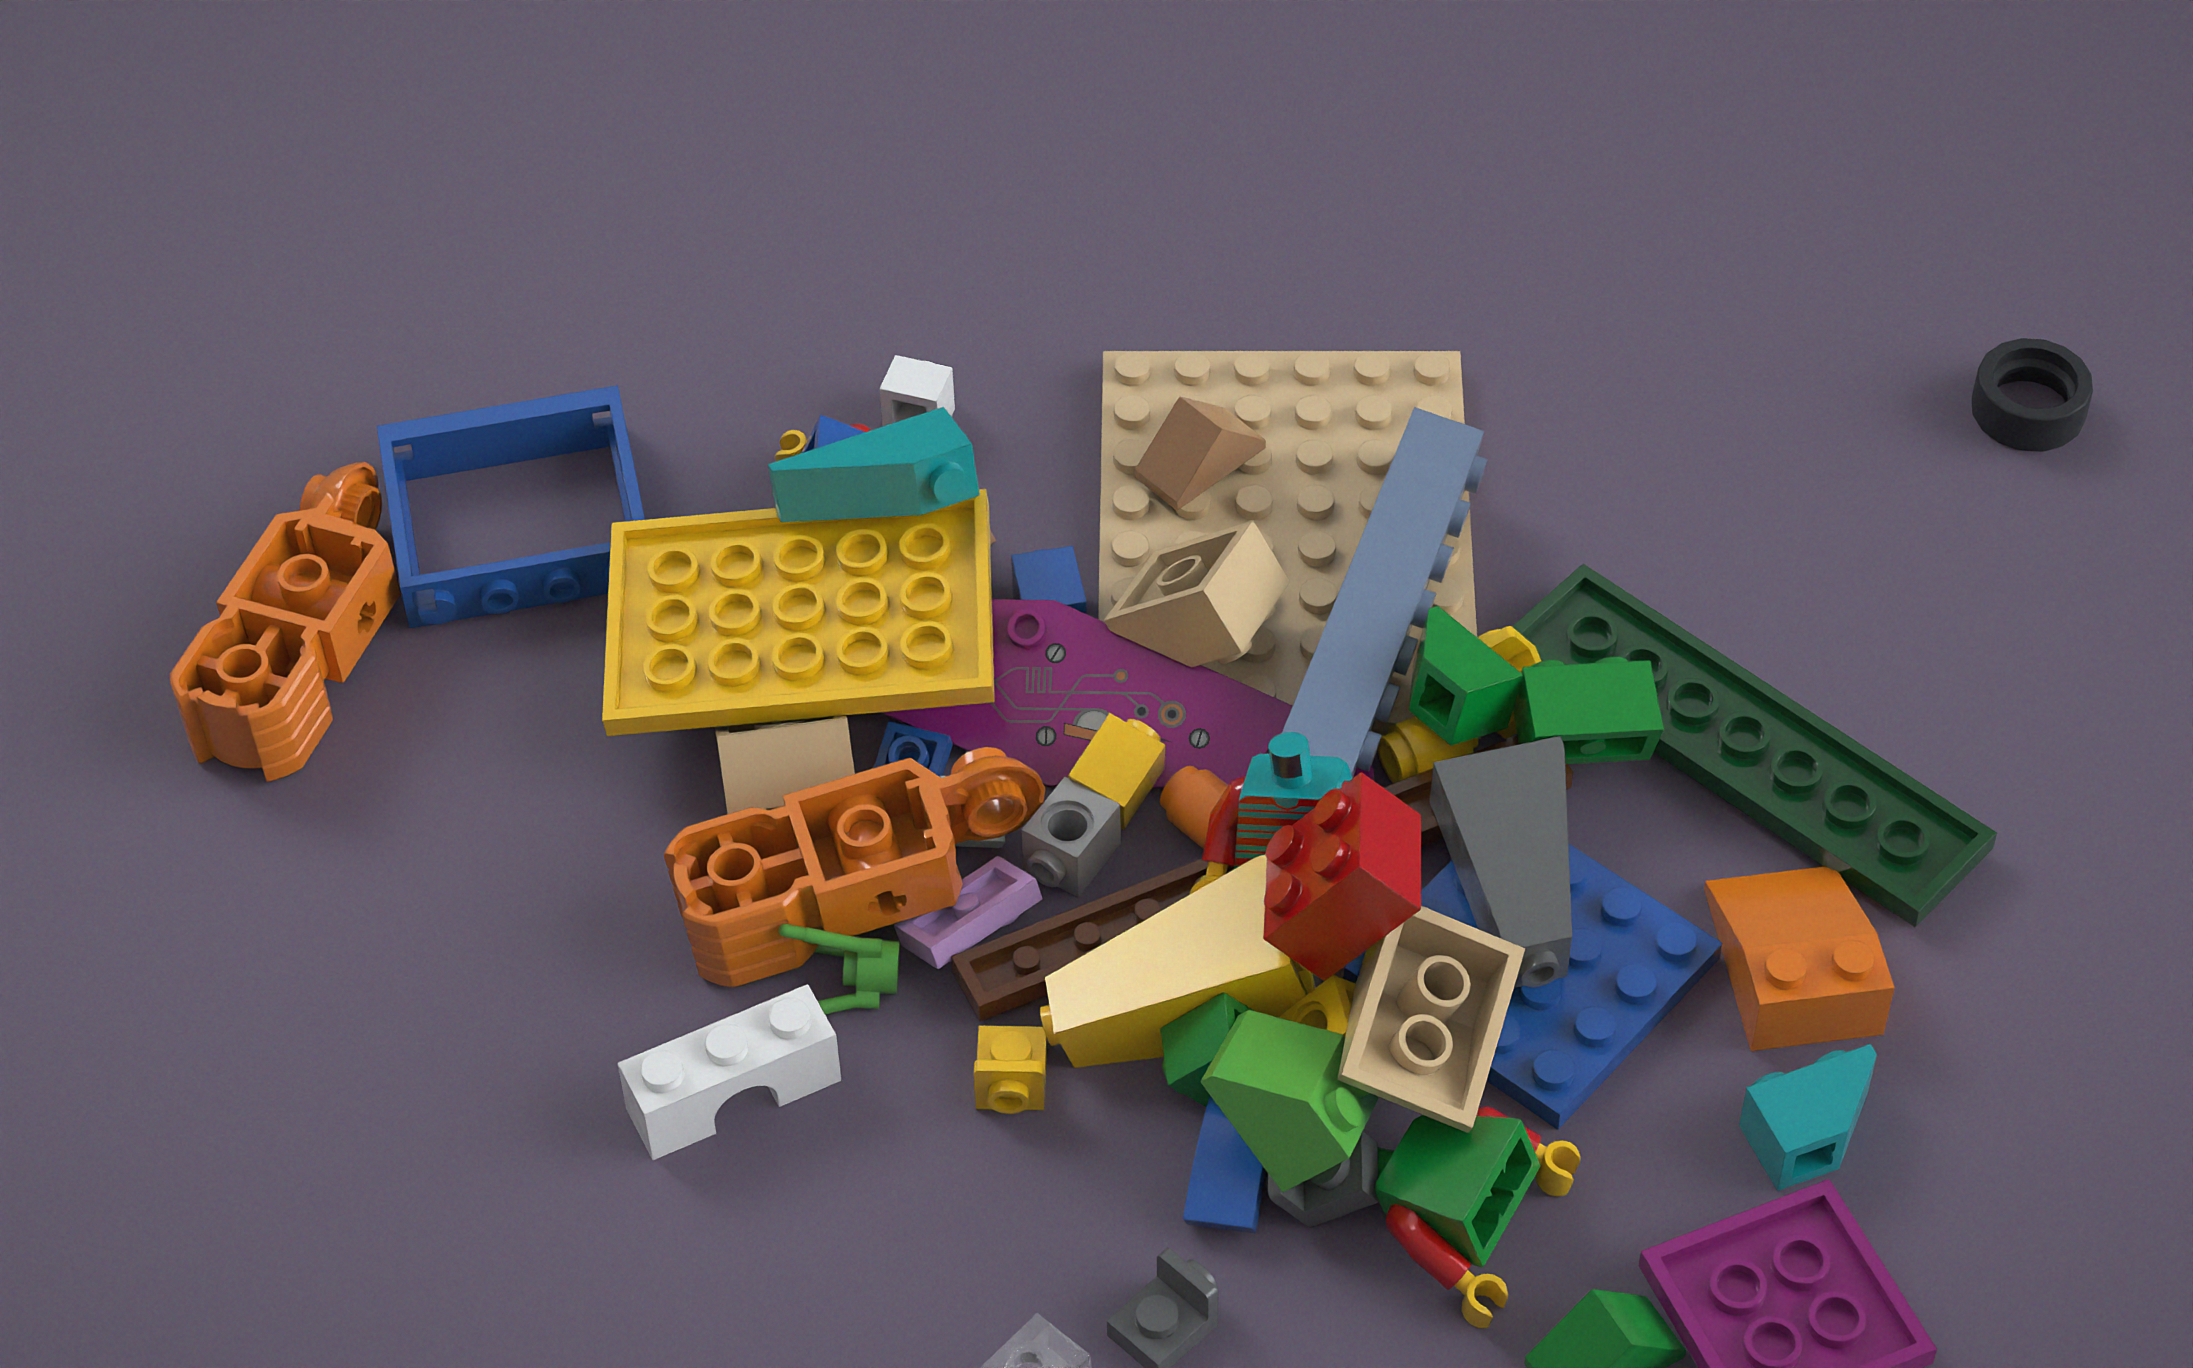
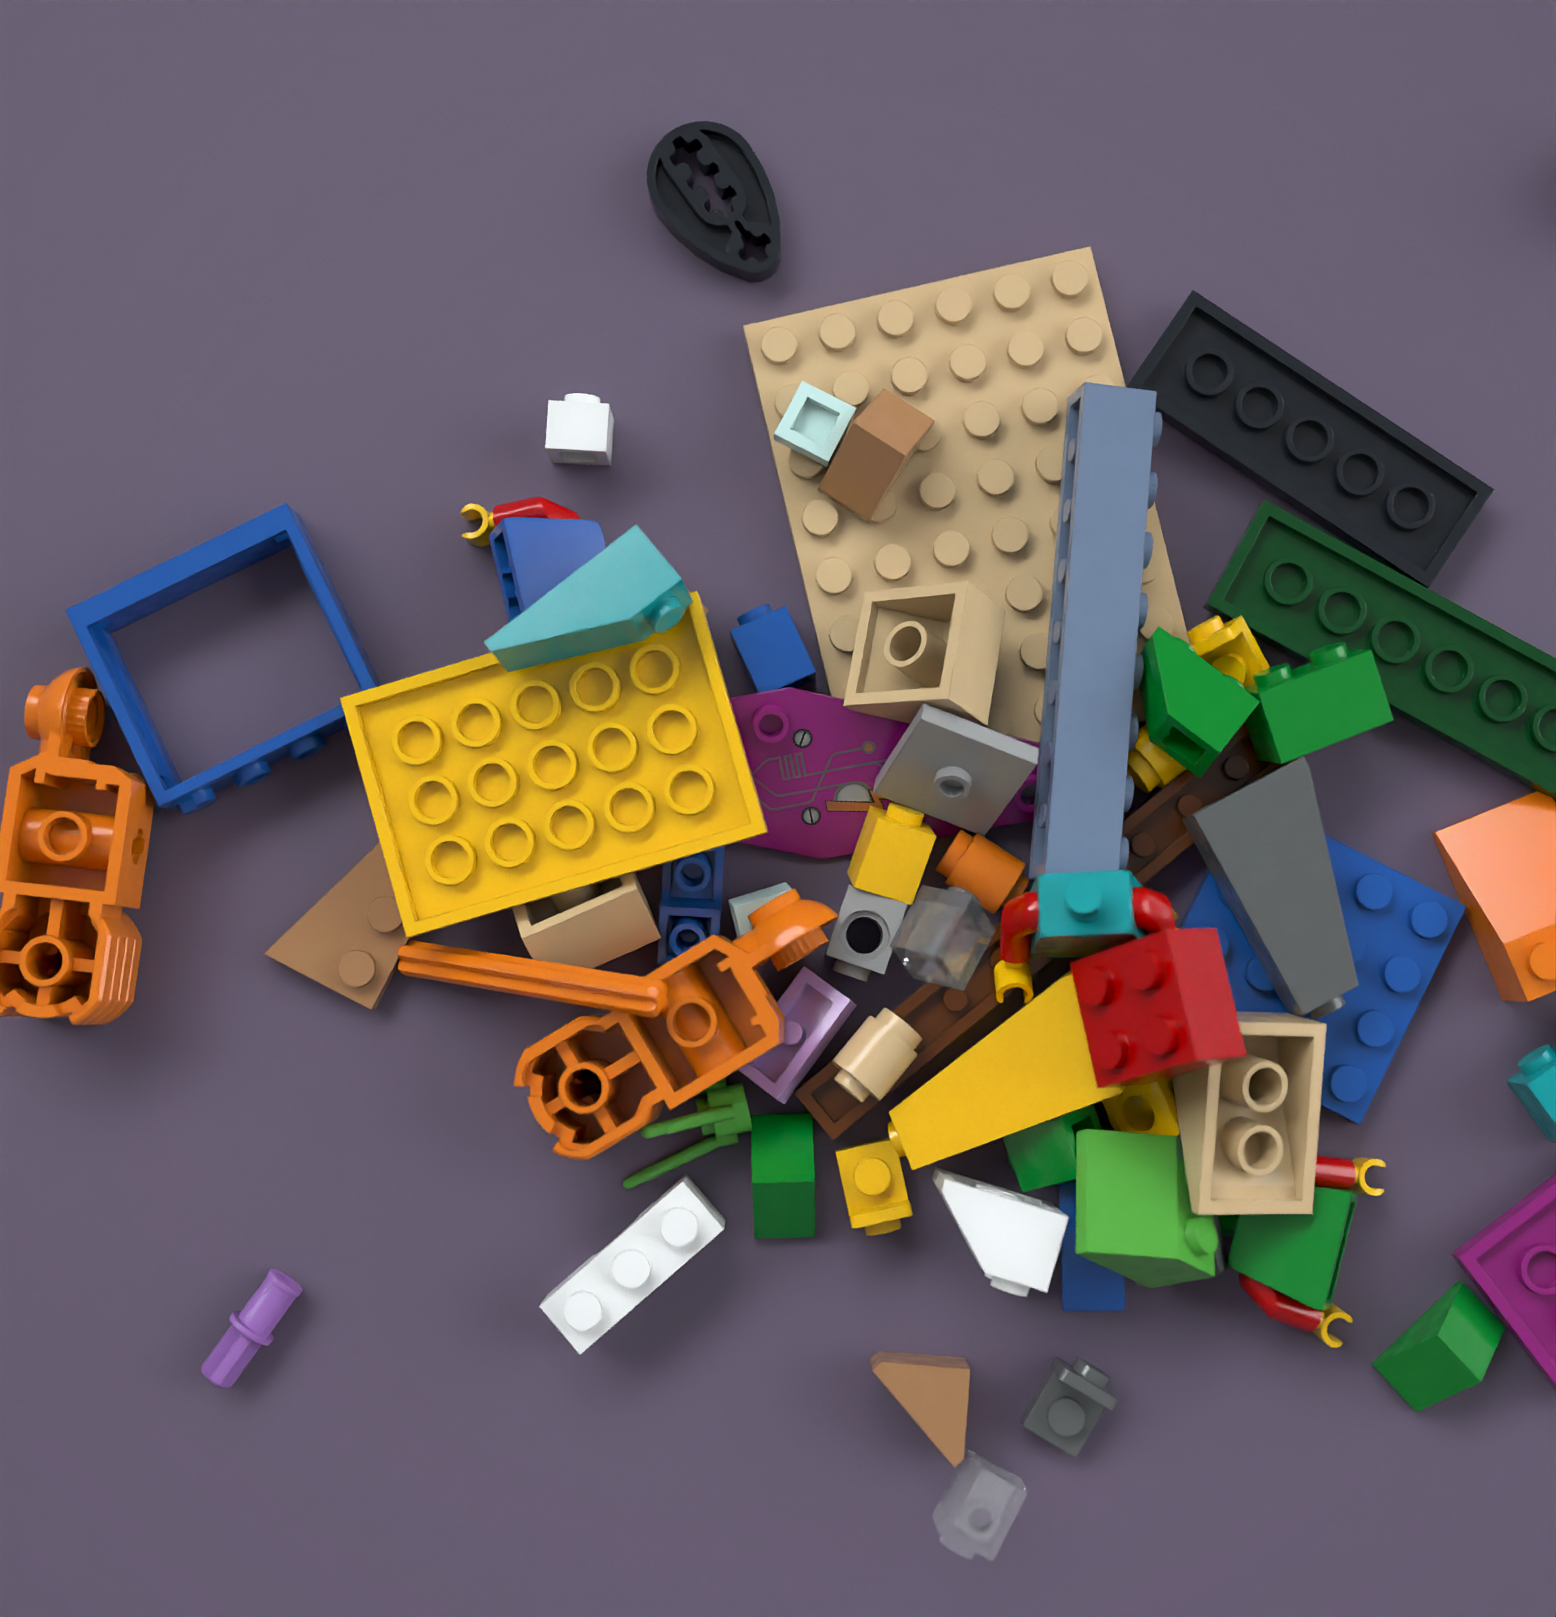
camera: 15 degrees left, 35 degrees up
(303, 1060) = (250, 1329): none -> medium lavender axle
(547, 751) = (349, 934): none -> medium nougat wing
(715, 777) = (534, 978): none -> orange axle
(913, 1047) = (783, 1175): none -> green slope
(1011, 1257) = (933, 1394): none -> medium nougat slope
(1047, 922) = (876, 1056): none -> tan brick
(1095, 285) = (738, 176): none -> black piece
(1137, 1099) = (1005, 1230): none -> white slope
(1139, 413) = (814, 423): none -> light aqua plate
(1148, 842) = (943, 936): none -> clear brick
(1200, 690) = (955, 770): none -> light grey plate
(1644, 533) = (1310, 441): none -> black plate

